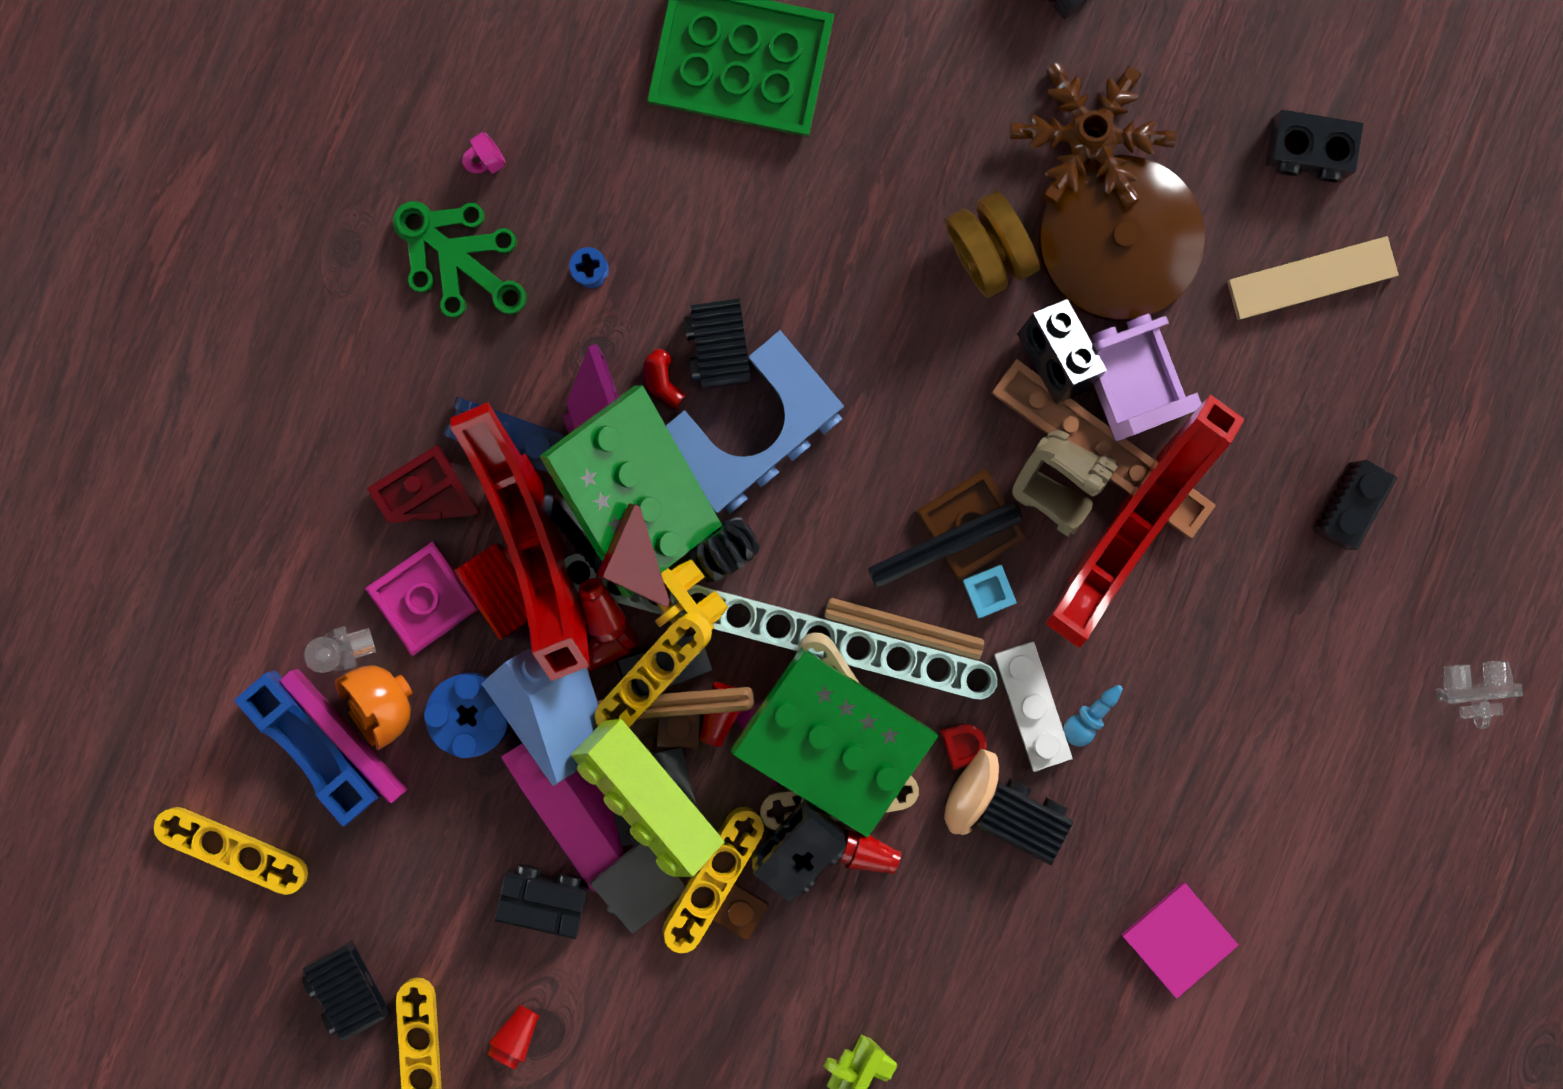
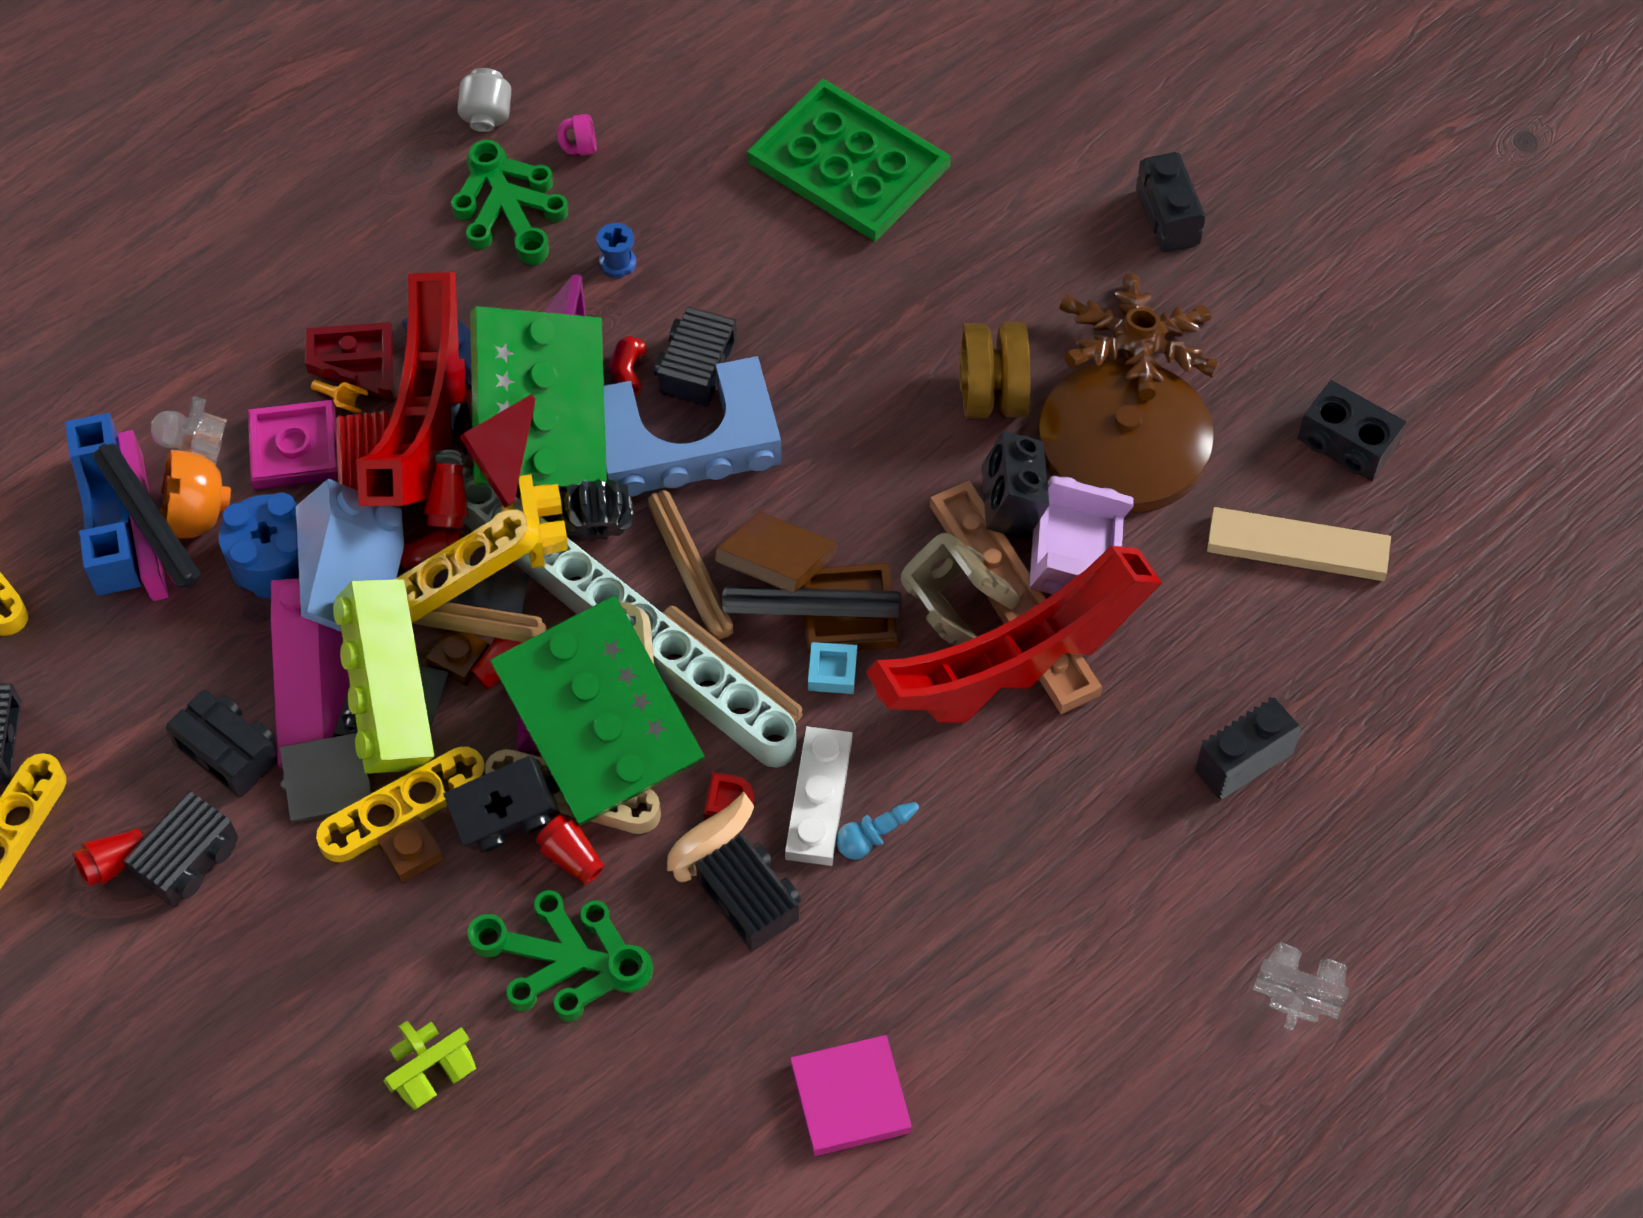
camera: 25 degrees right, 30 degrees down
(360, 751) = (146, 516): none -> black axle
(374, 159) = (484, 99): none -> light grey head
(439, 535) = (343, 395): none -> light orange hand
(568, 1005) = (182, 849): none -> black brick
(821, 549) = (690, 565): none -> medium nougat axle
(892, 512) = (776, 552): none -> reddish brown tile
(912, 937) = (566, 957): none -> green plant

